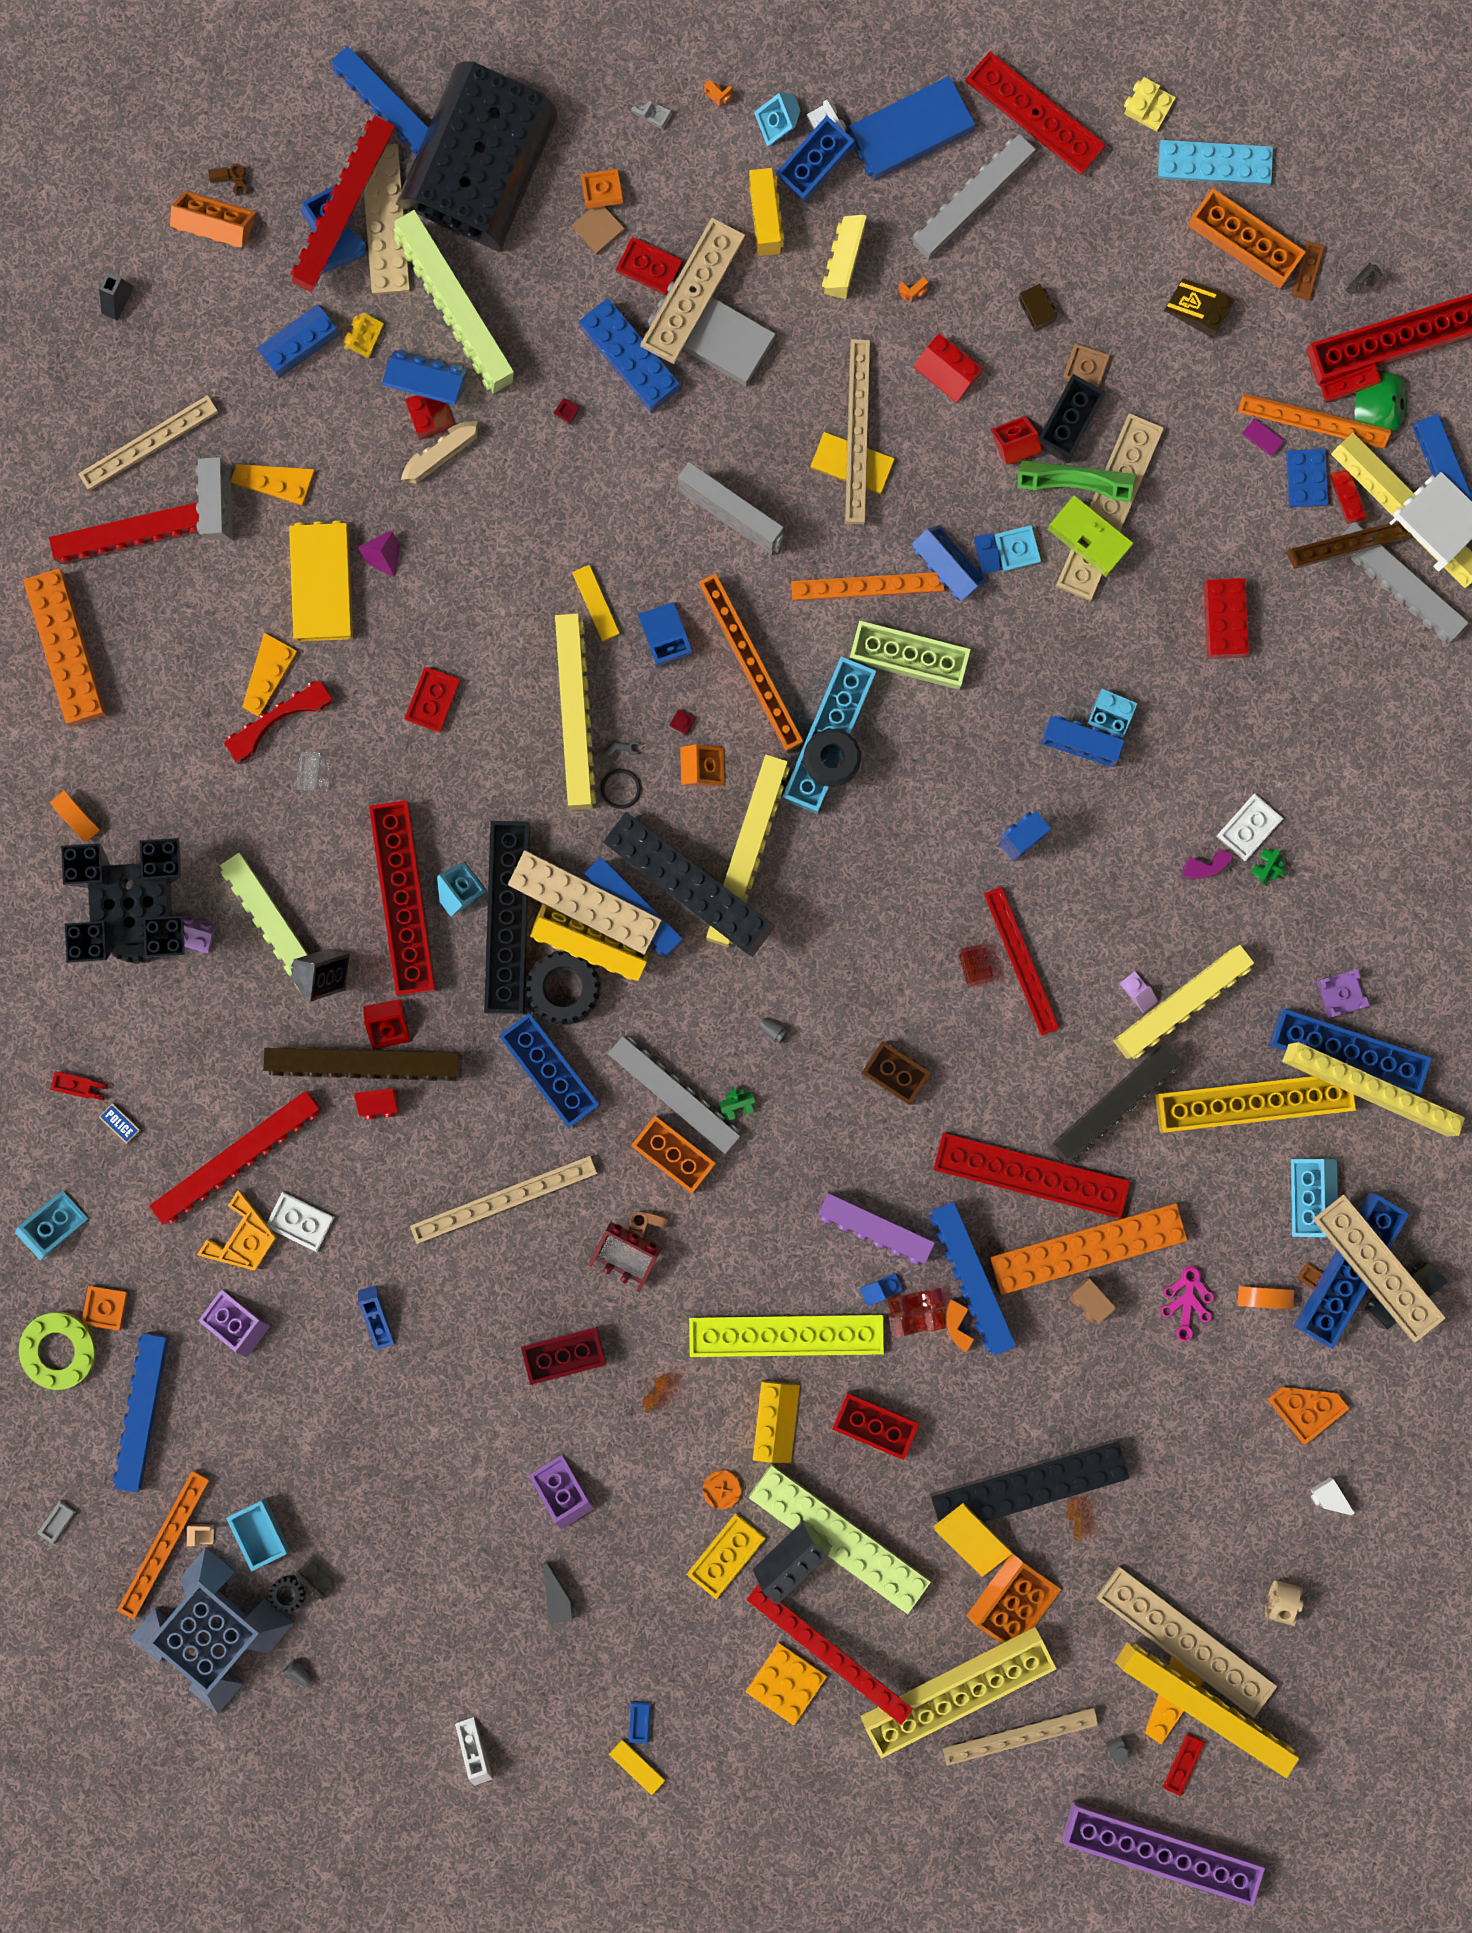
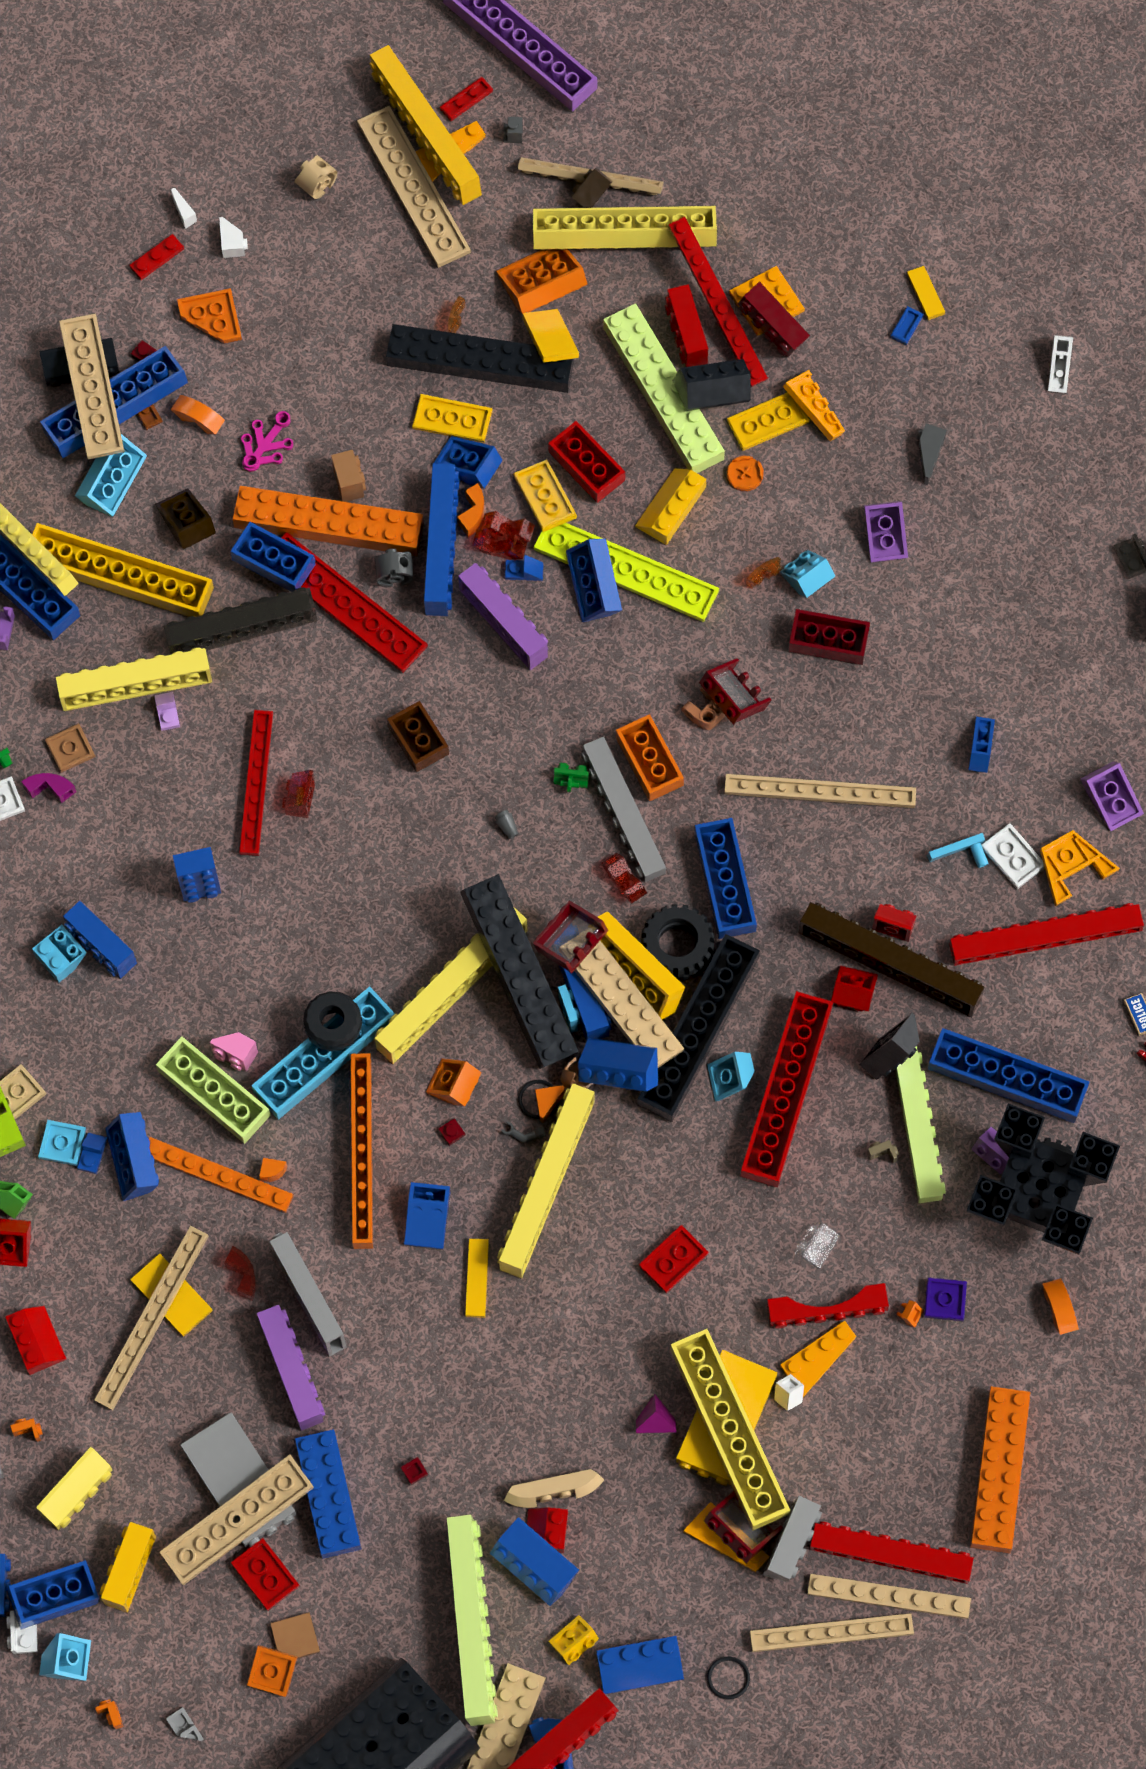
camera: 155 degrees left, 15 degrees down
(114, 497) = (889, 1596): none -> tan plate
(179, 776) = (945, 1299): none -> dark purple plate
(202, 749) = (911, 1313): none -> orange tile
(210, 1005) = (1008, 1075): none -> blue brick
(219, 350) = (728, 1658): none -> black tyre
(262, 492) = (735, 1531): none -> window
(277, 629) = (789, 1392): none -> white panel
(297, 883) = (878, 1149): none -> dark tan bracket
(308, 562) = (730, 1429): none -> light yellow brick
(340, 1215) = (973, 843): none -> medium azure piece
(558, 841) = (618, 1065): none -> blue slope
(597, 819) = (570, 1075): none -> medium nougat piece
(609, 787) = (548, 1099): none -> orange slope
(614, 1412) = (808, 573): none -> medium azure slope
(635, 883) = (571, 1014): none -> medium azure plate
(642, 1028) = (623, 878): none -> clear red brick
(656, 932) = (570, 936): none -> window
(697, 1596) = (808, 397): none -> light orange wing
(715, 443) = (291, 1370): none -> medium lavender brick
(766, 1659) = (773, 319): none -> dark red brick
(804, 515) = (239, 1263): none -> clear red brick
(809, 1306) = (593, 580): none -> blue slope
(821, 611) = (272, 1170): none -> orange brick
(847, 1614) = (686, 326): none -> red brick
(898, 1373) = (545, 495): none -> yellow tile
(907, 698) = (235, 1049): none -> bright pink slope
(987, 1374) = (472, 459): none -> blue slope
(1001, 1228) = (393, 568): none -> dark grey brick
(1010, 1719) = (592, 188): none -> dark brown brick
(1025, 1413) = (452, 418): none -> yellow tile
(1118, 1181) = (272, 557): none -> blue brick
(1207, 914) = (70, 748): none -> medium nougat tile
(1222, 1188) = (186, 518): none -> dark brown slope
(1351, 1339) = (142, 351): none -> dark red plate
(1391, 1505) = (185, 212): none -> white slope
(1393, 1446) = (156, 257): none -> red plate

